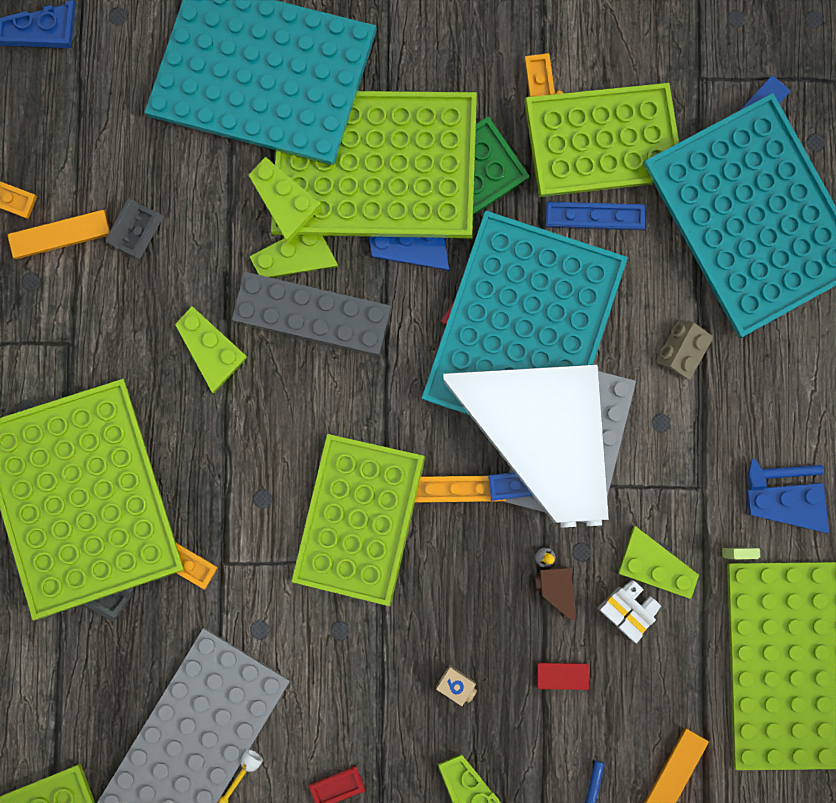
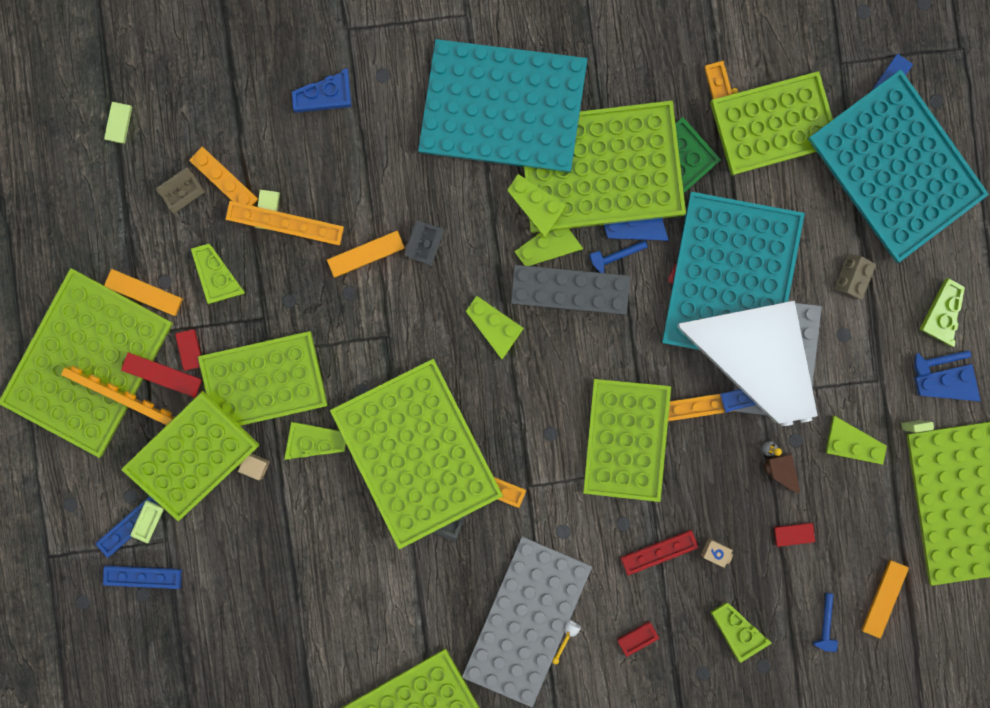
camera: 10 degrees left, 5 degrees up
(357, 285) = (598, 261): none -> blue piece
(381, 675) = (659, 552): none -> red tile
(595, 216) = (774, 182): blue tile -> none
(629, 614) = (836, 481): white hips -> none
(793, 412) = (943, 313): none -> lime wing

